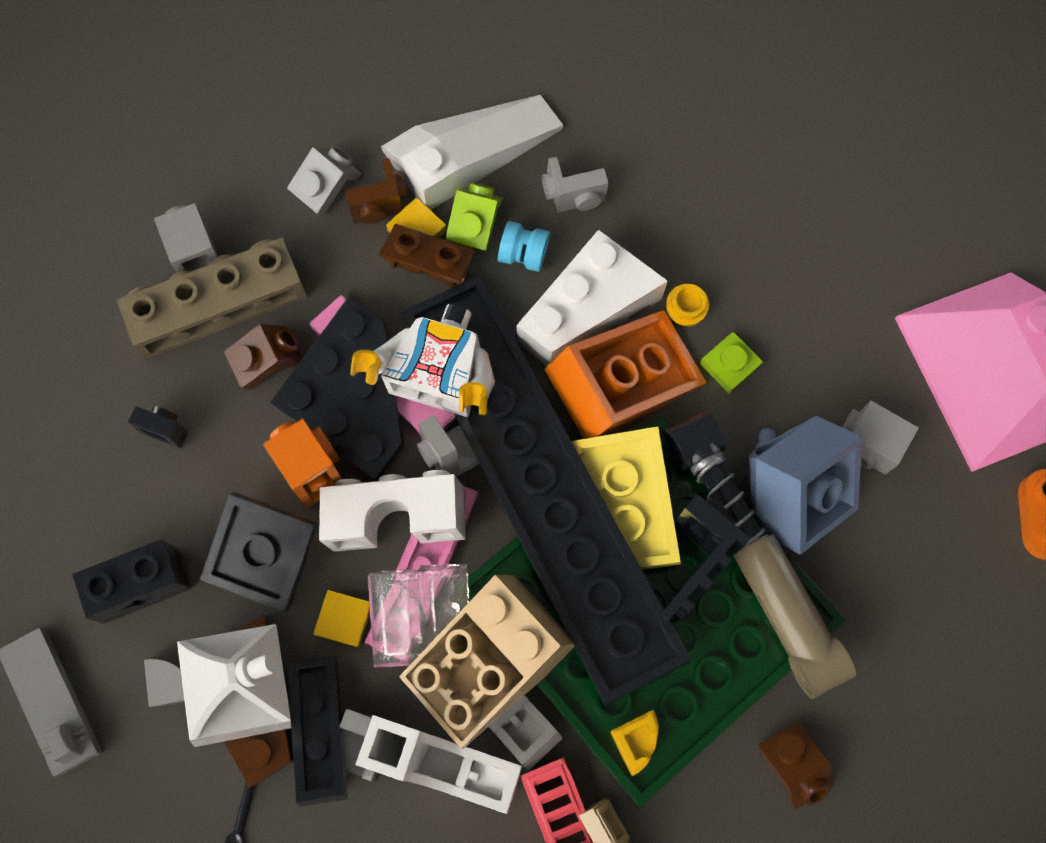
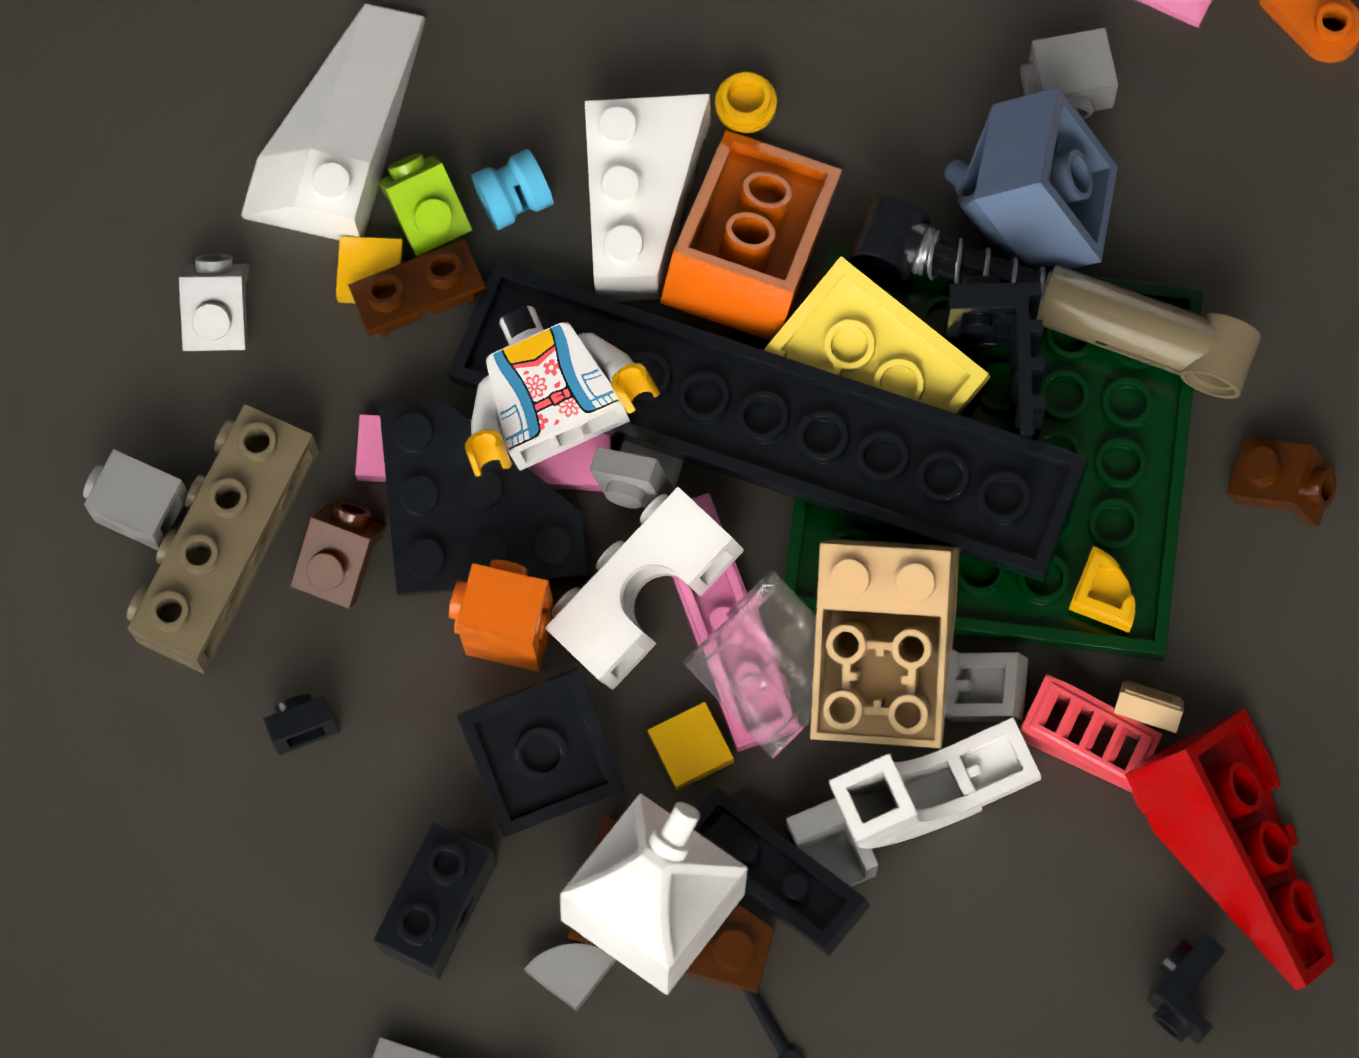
camera: 35 degrees left, 0 degrees up
(376, 201) = (302, 280): reddish brown bracket -> none
(575, 191) = (517, 76): light grey bracket -> none
(731, 362) = (848, 125): lime plate -> none

